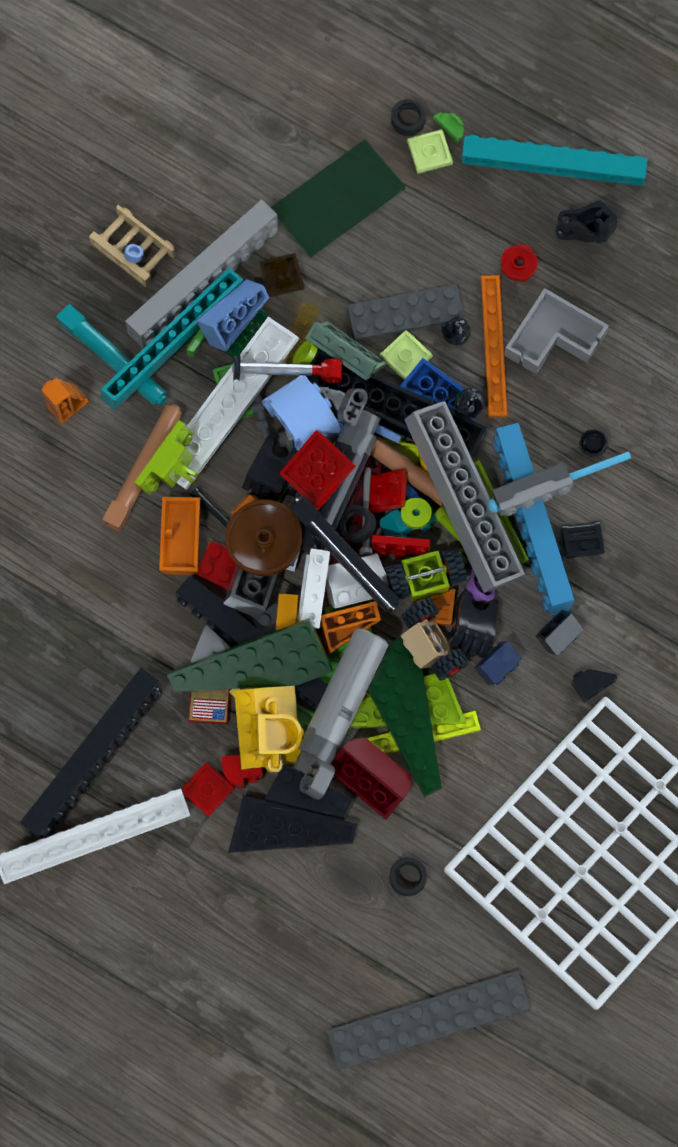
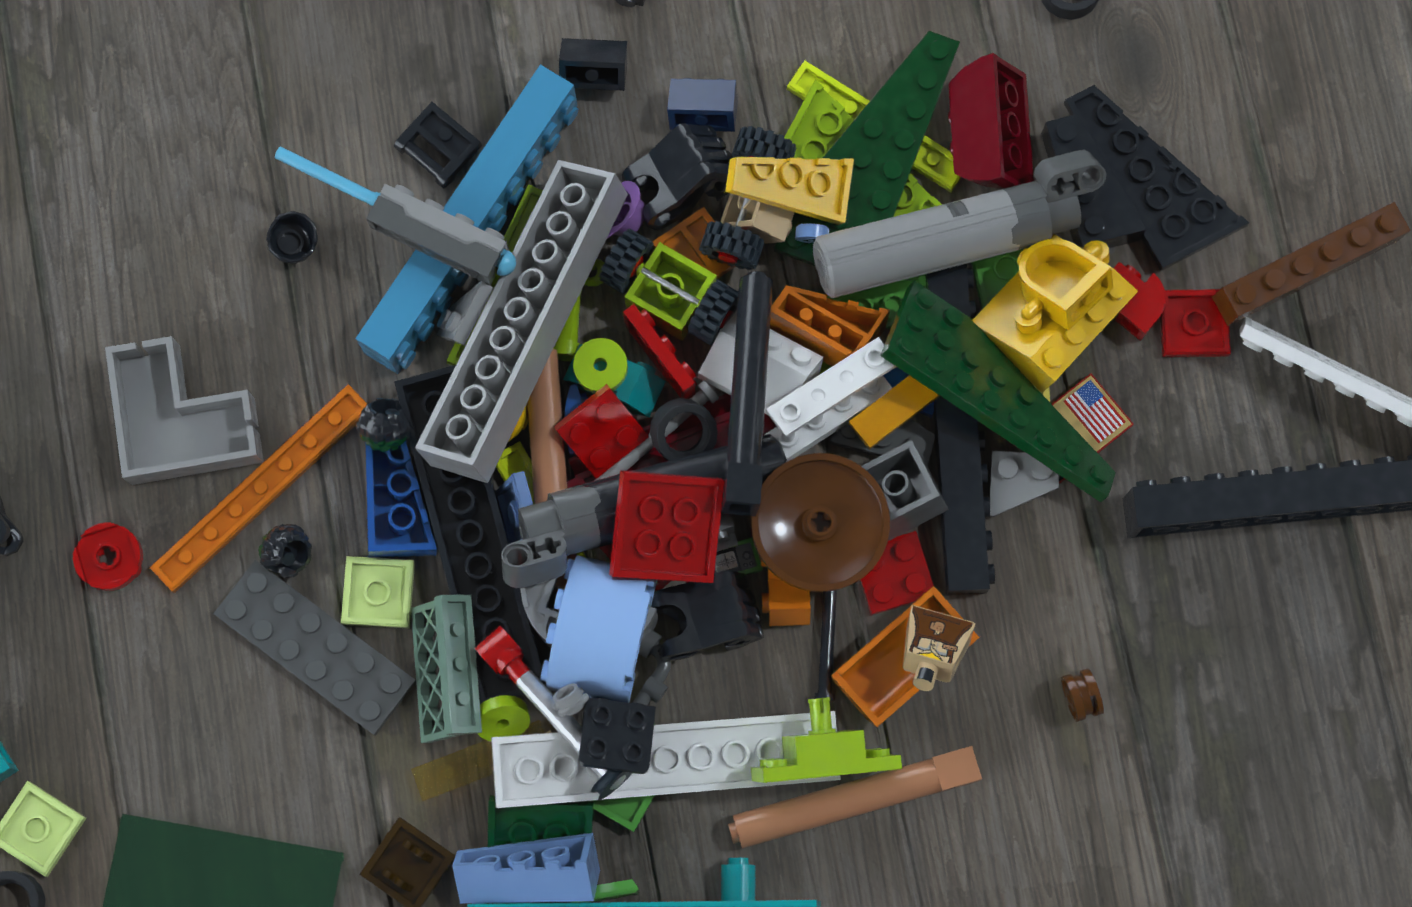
camera: 130 degrees left, 5 degrees up
(97, 592) = (1082, 695): none -> reddish brown wheel
(171, 542) = (934, 646): none -> torso
(184, 858) = (1311, 263): none -> reddish brown brick
(251, 380) = (616, 735): none -> black bracket
(283, 374) = (569, 700): none -> light grey plate
(393, 651) = (808, 232): none -> medium blue tile
(418, 658) = (794, 184): none -> yellow wing
(490, 476) = (462, 316): none -> light grey wing

